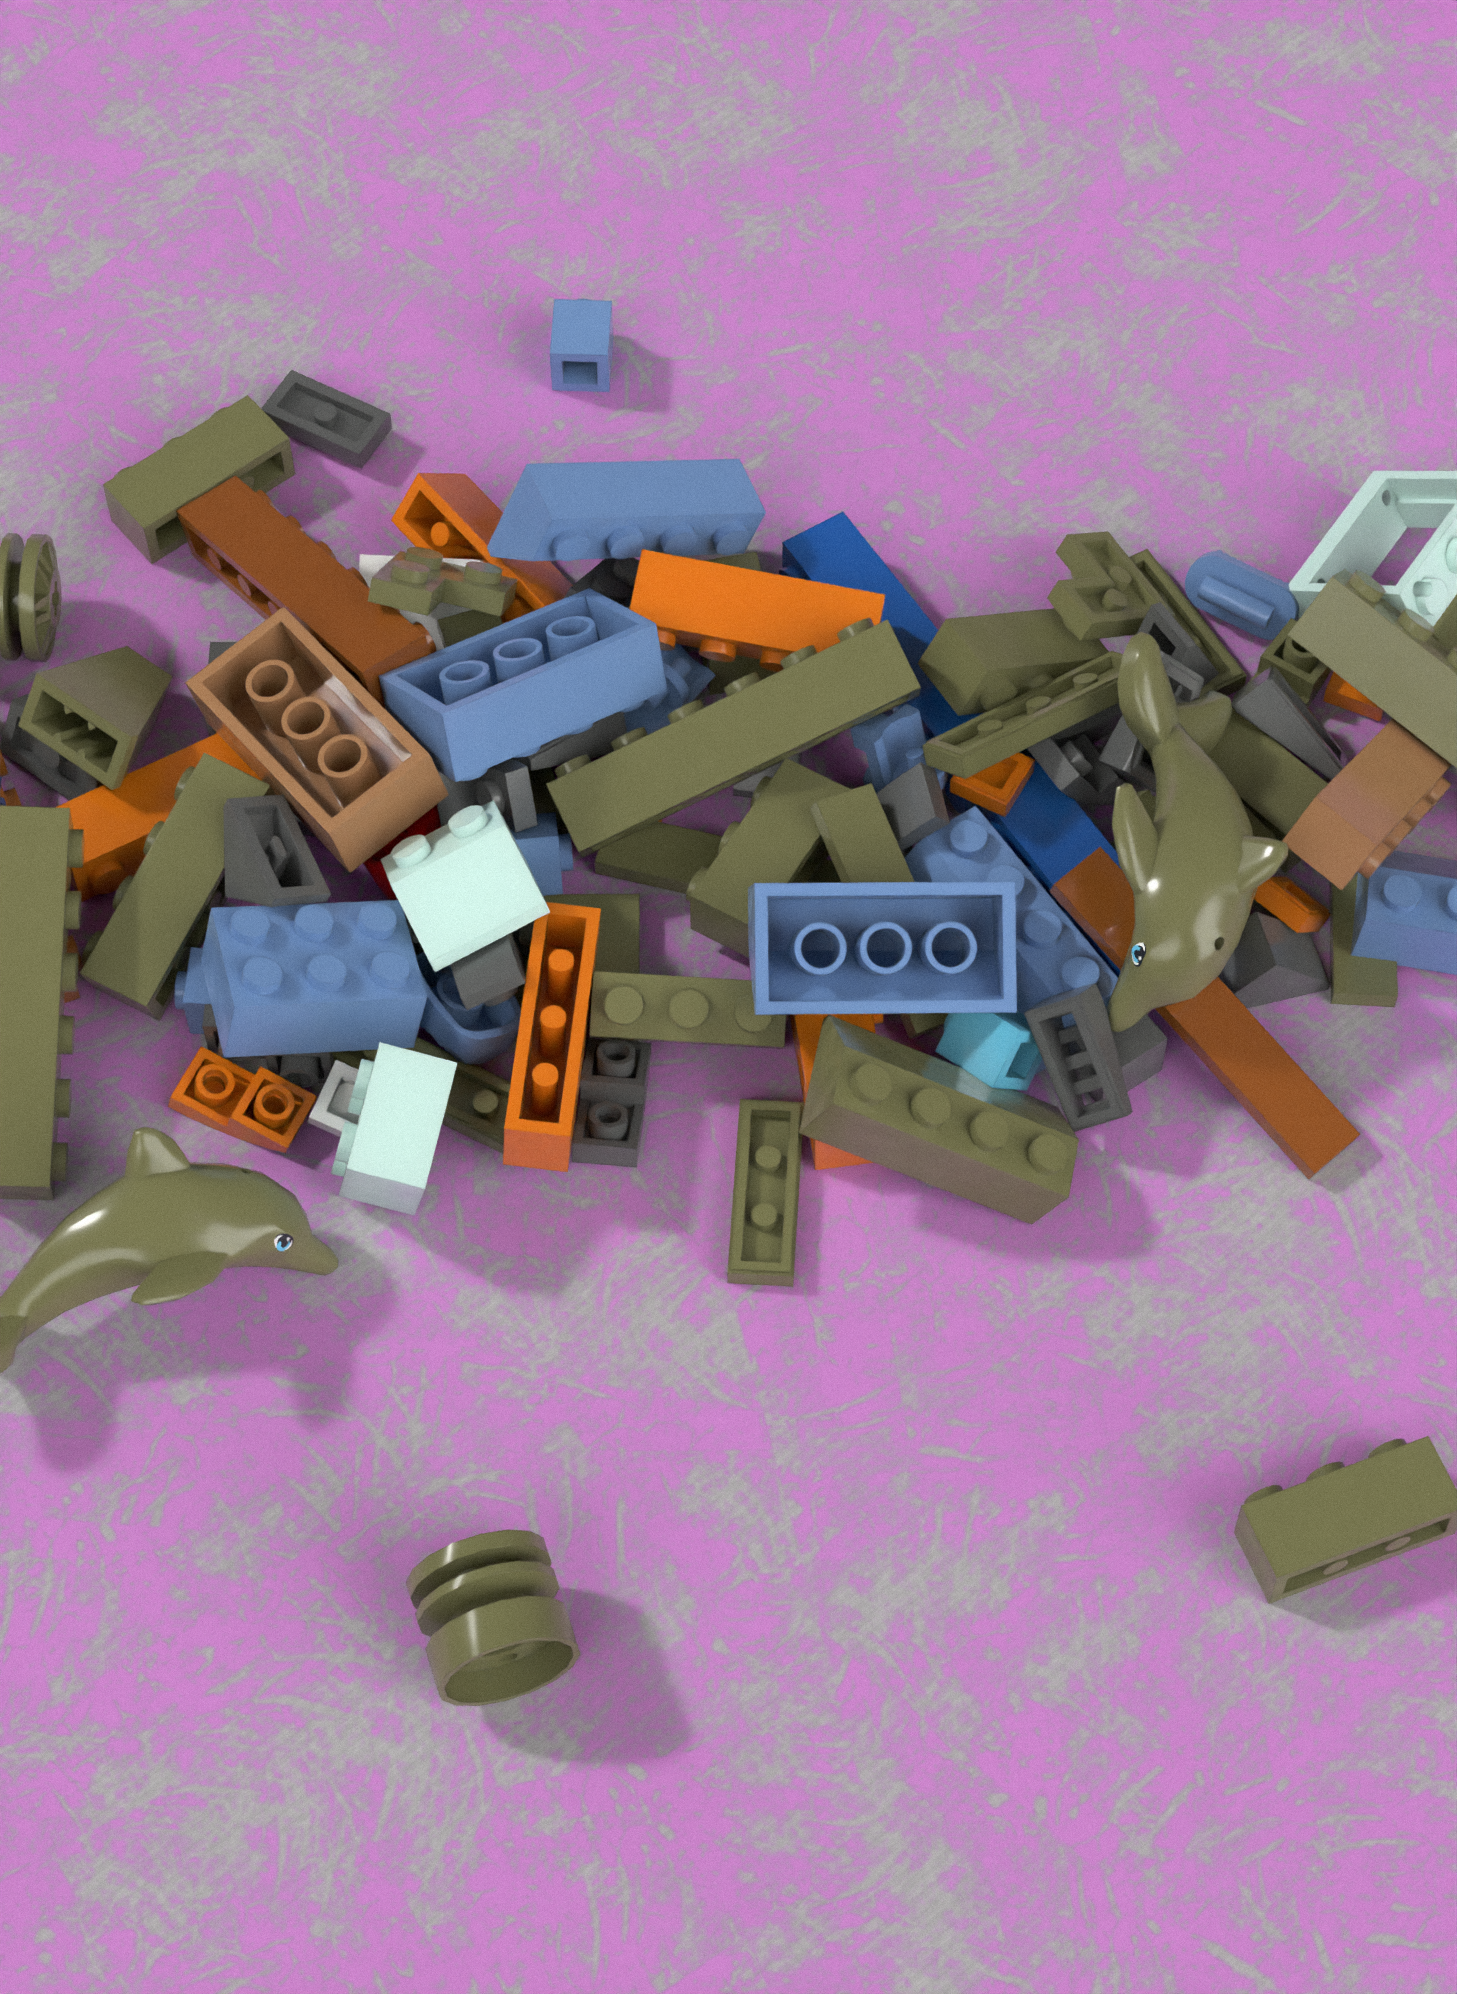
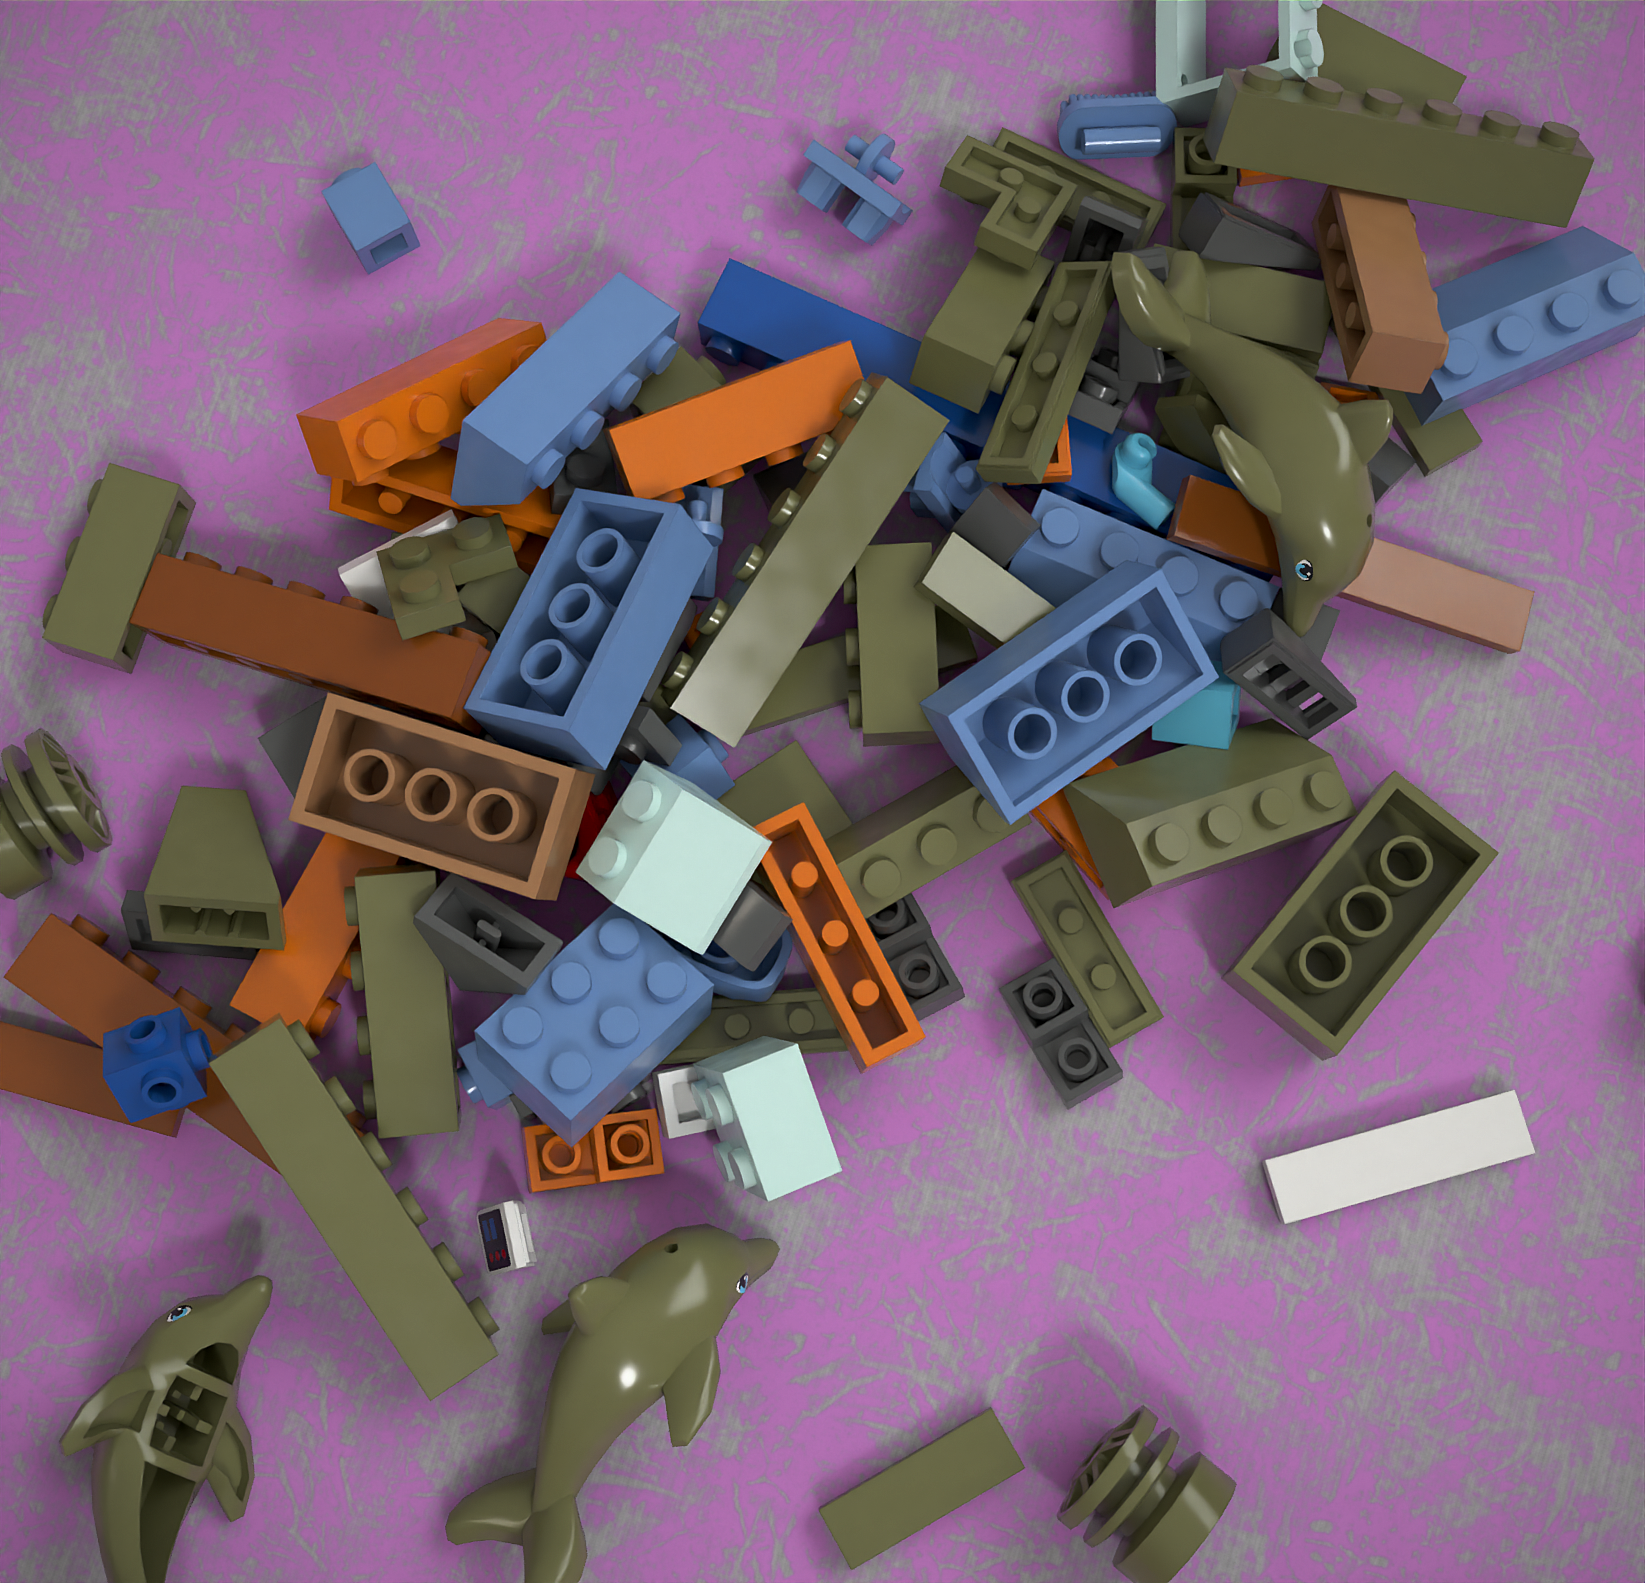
camera: 30 degrees left, 20 degrees up
(129, 1110) = (506, 1237): none -> white slope
(315, 1519) = (921, 1488): none -> olive tile
(327, 418) = (189, 434): dark grey plate -> none
(473, 460) = (414, 403): none -> orange brick
(696, 1241) = (1061, 1033): none -> dark grey slope
(919, 1509) = (1398, 1157): none -> white tile
(995, 547) = (830, 175): none -> medium blue hips
(1015, 1283) = (1359, 916): none -> olive brick
(1059, 836) = (1134, 480): none -> medium azure arm

